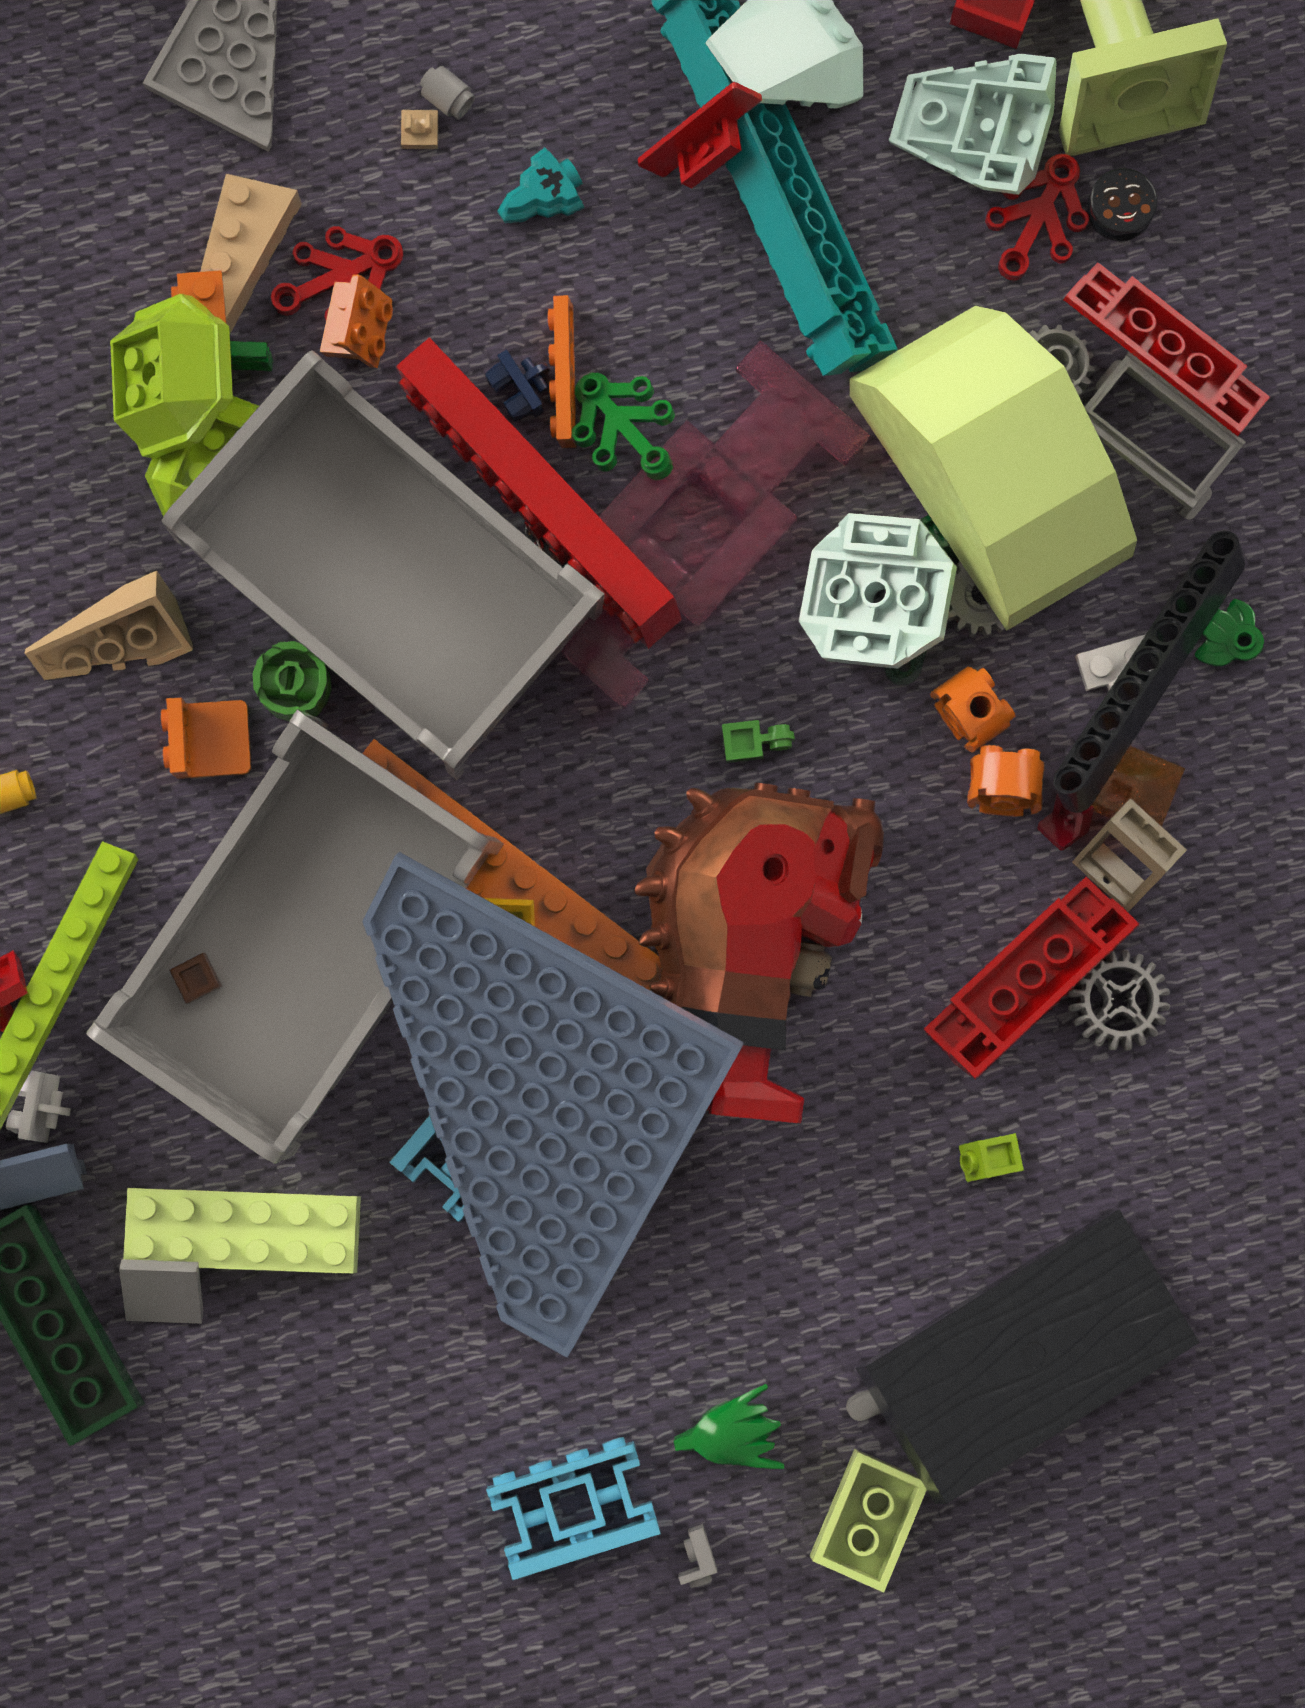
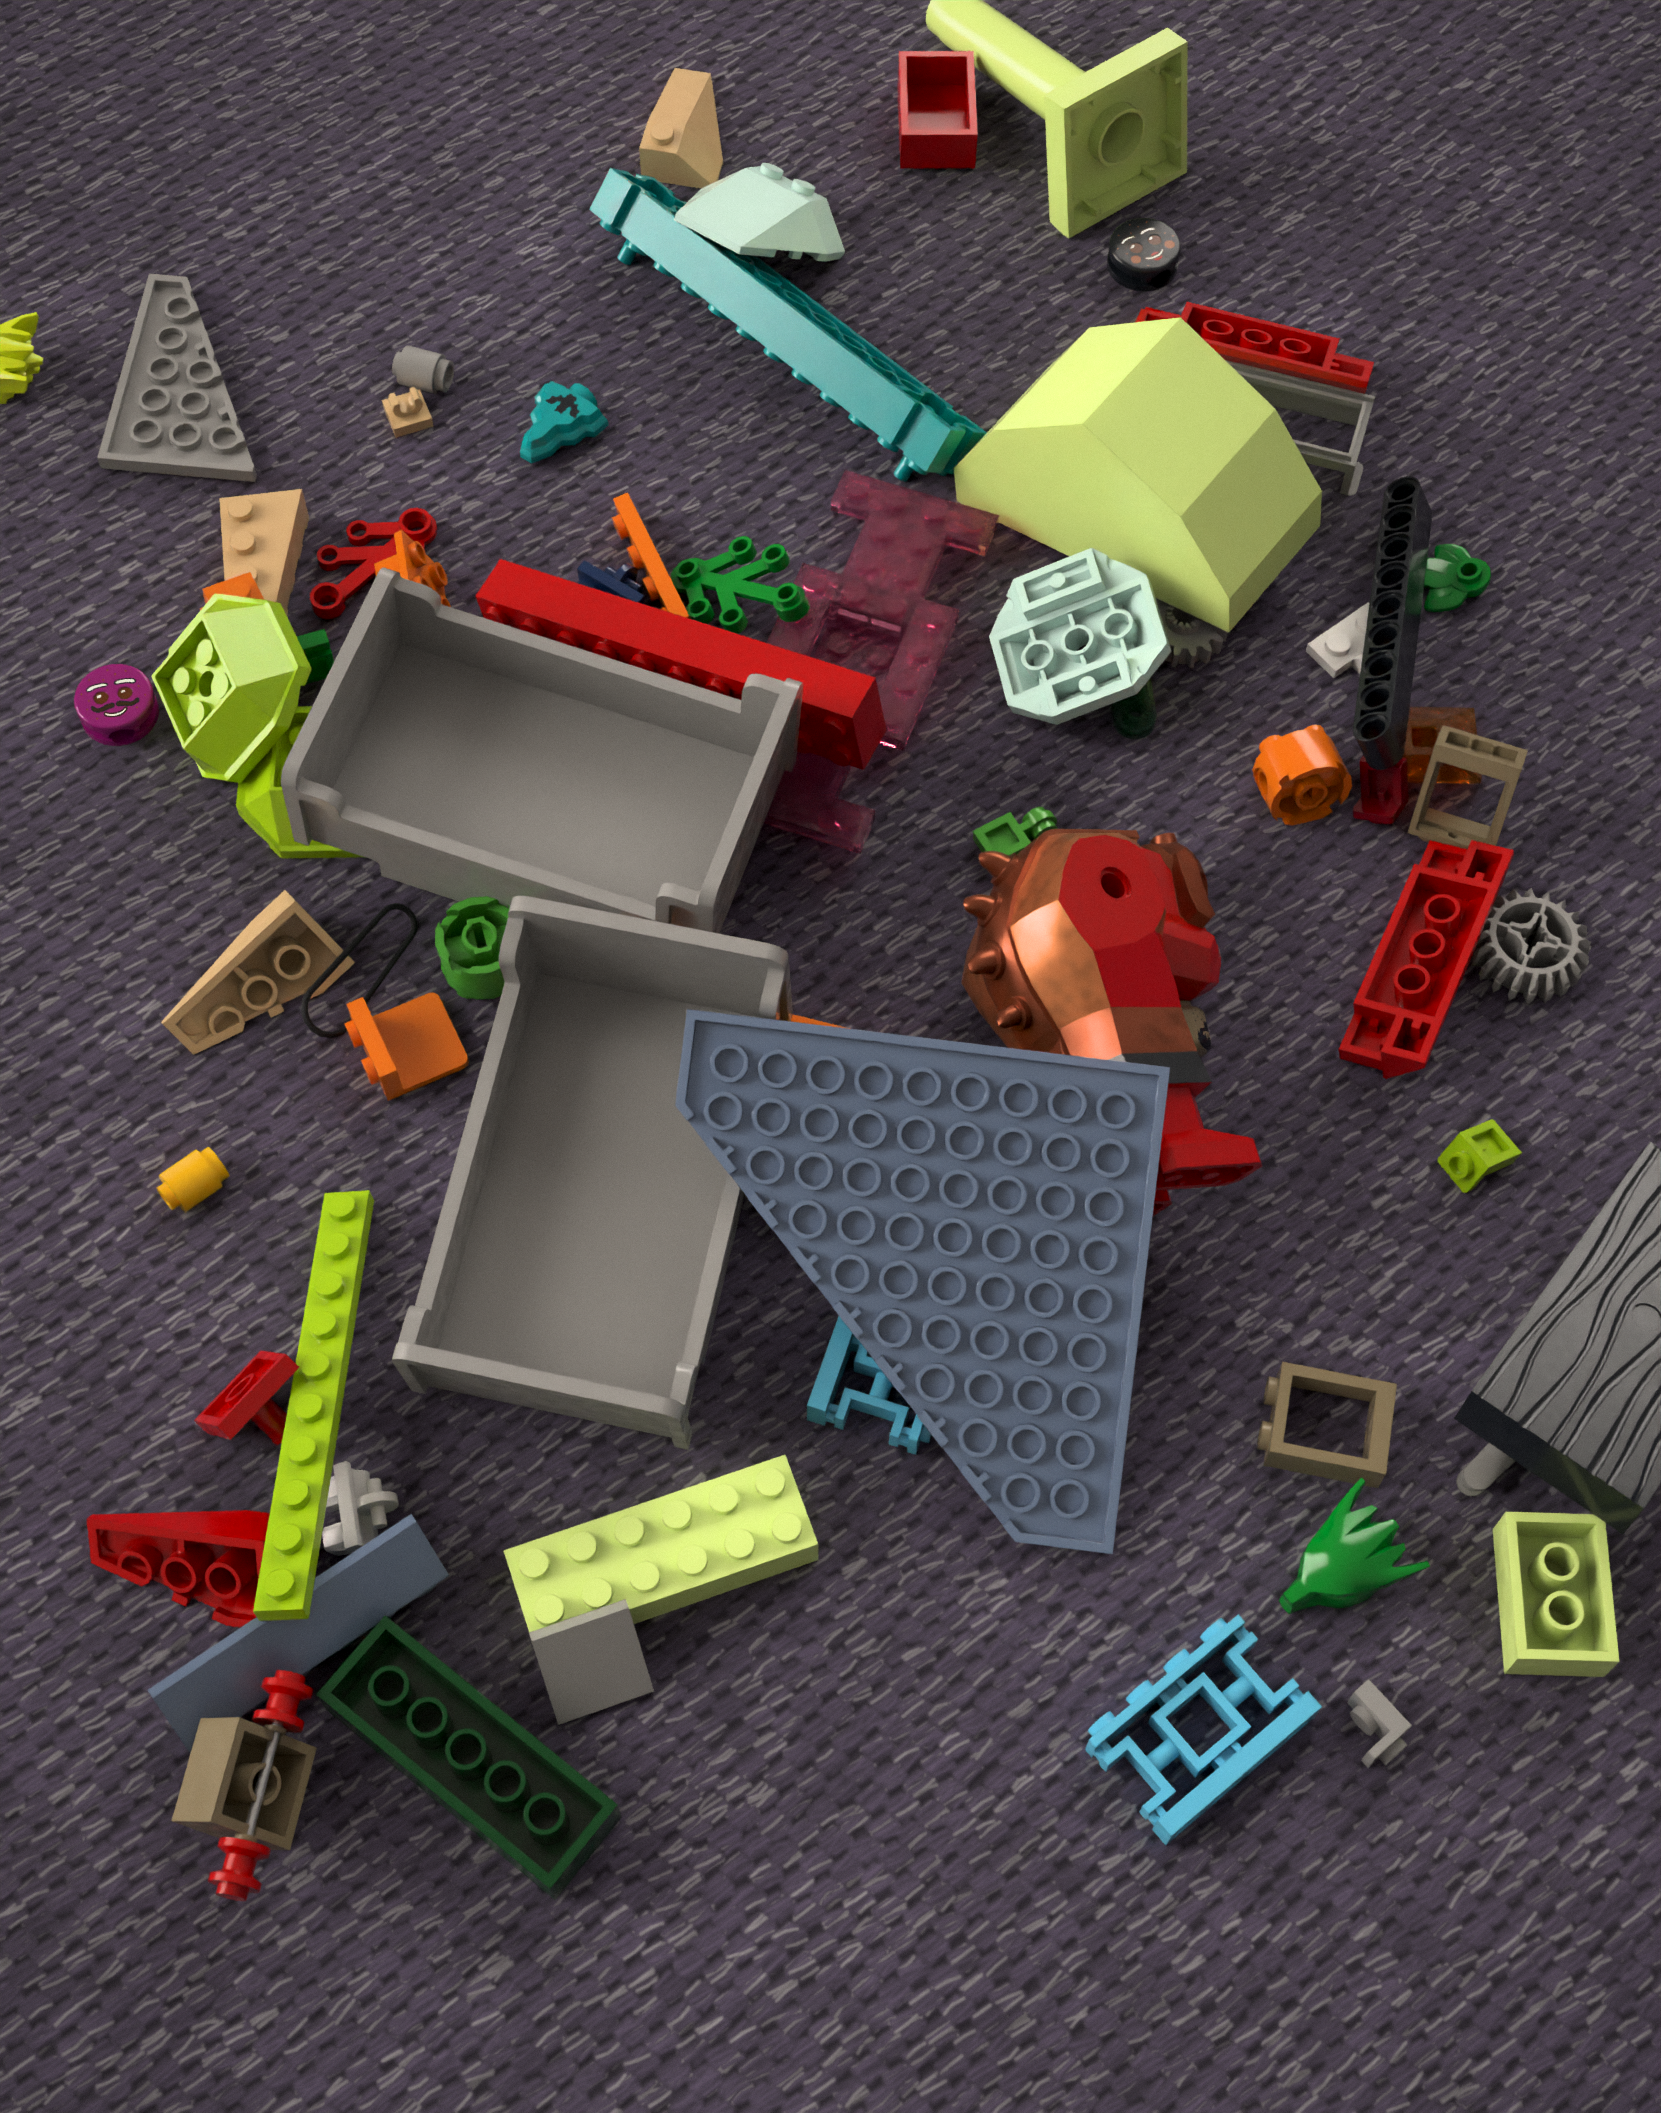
camera: 20 degrees left, 20 degrees down
(81, 336) = (116, 704): none -> magenta head
(182, 645) = (304, 1007): none -> black piece
(195, 978) = (494, 1286): reddish brown tile -> none
(704, 138) = (706, 307): red bracket -> none
(802, 1346) = (1323, 1463): none -> dark tan window
(954, 702) = (1229, 718): orange brick -> none
(980, 120) = (970, 226): light aqua wedge -> none
(1041, 211) = (1067, 286): red plant -> none

